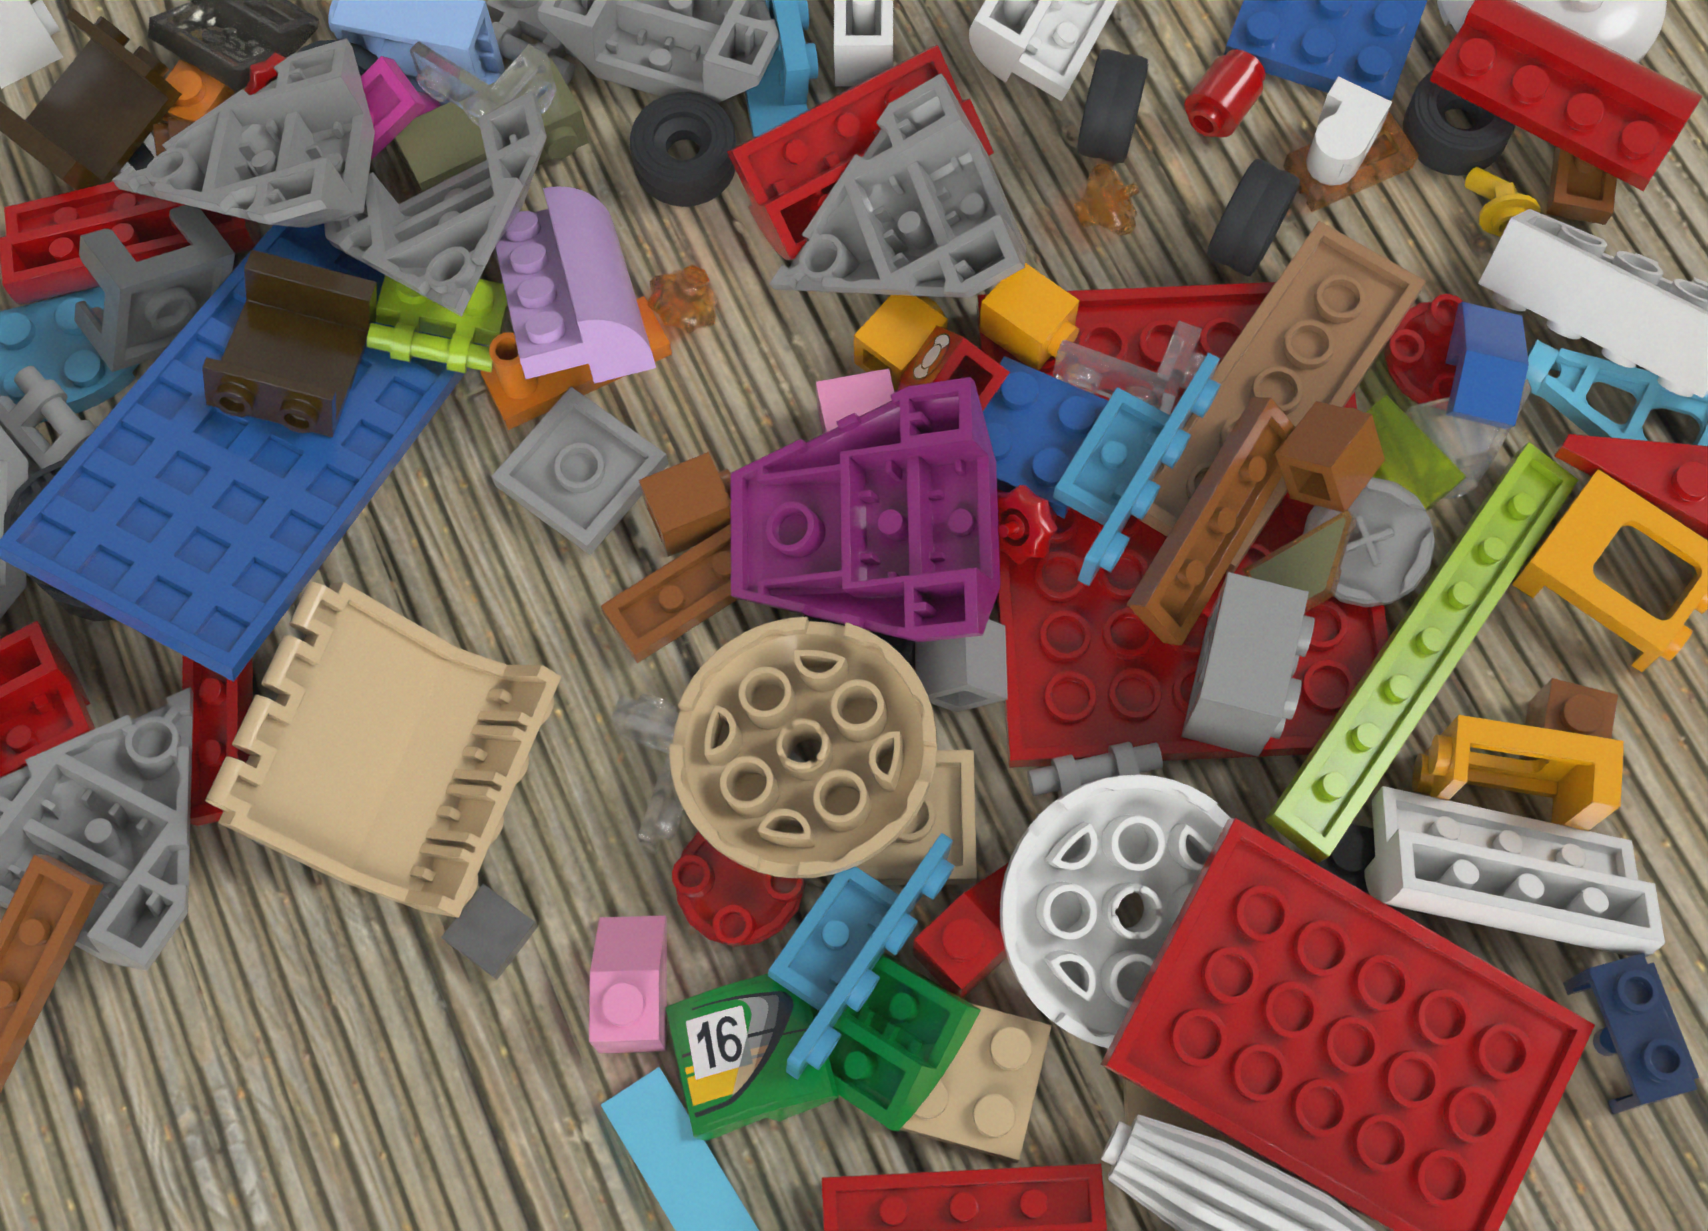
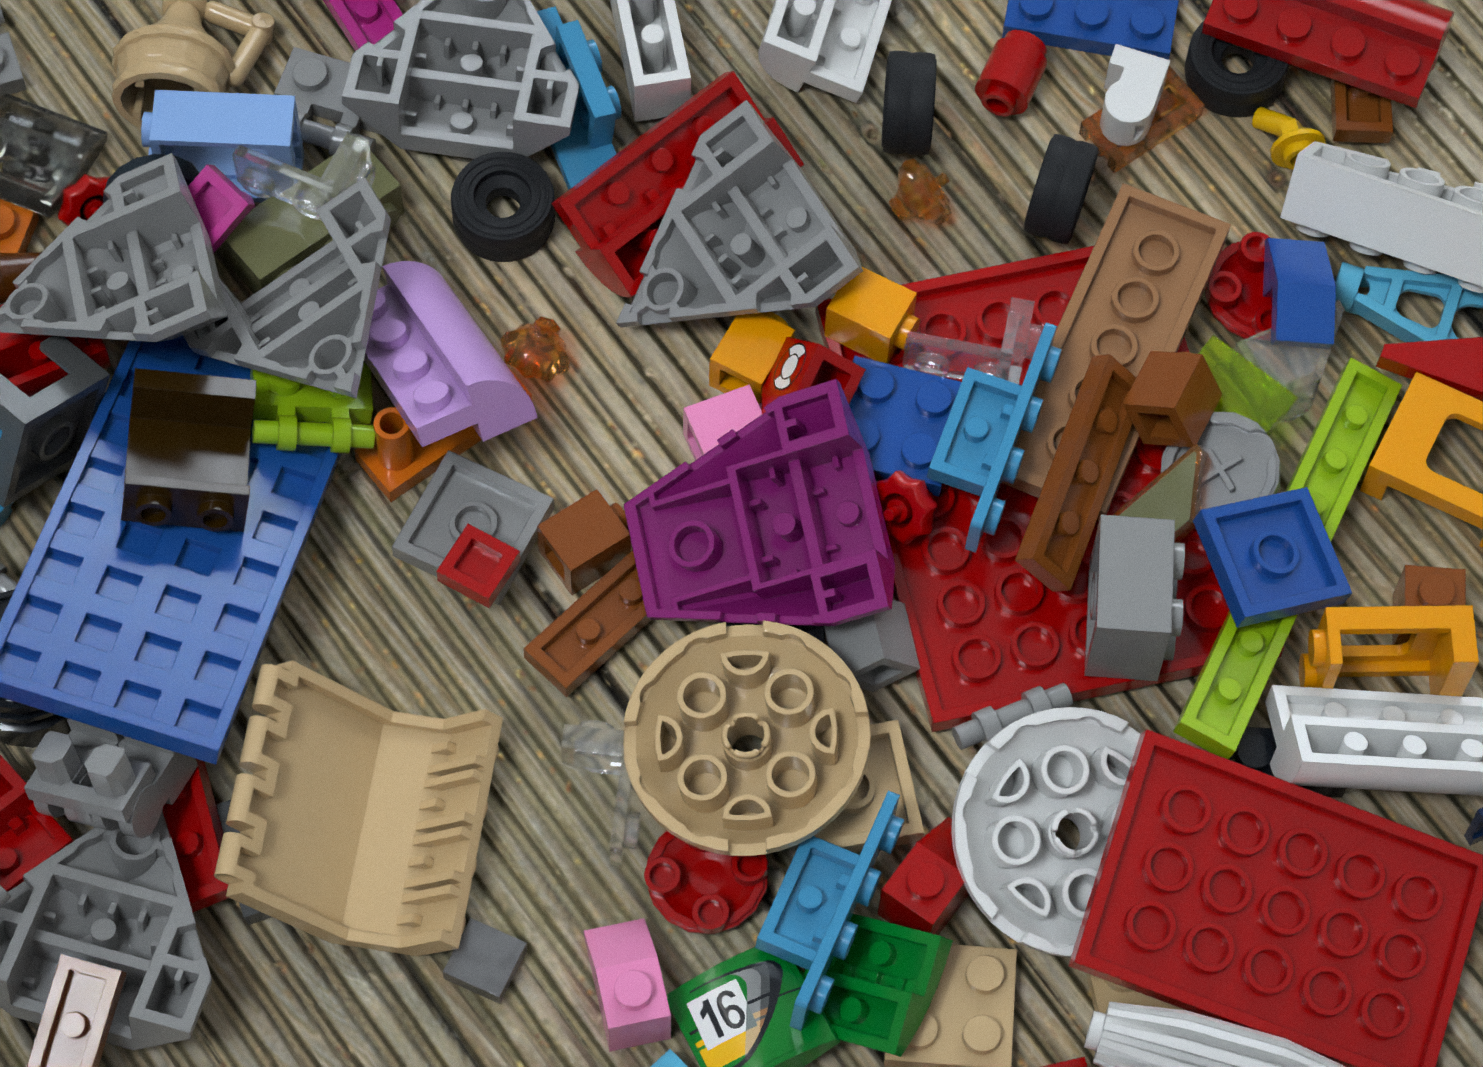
camera: 15 degrees left, 5 degrees down
(126, 677) = (106, 779): none -> light grey hips
(569, 512) = (478, 565): none -> red plate
(1408, 647) = (1272, 557): none -> blue plate

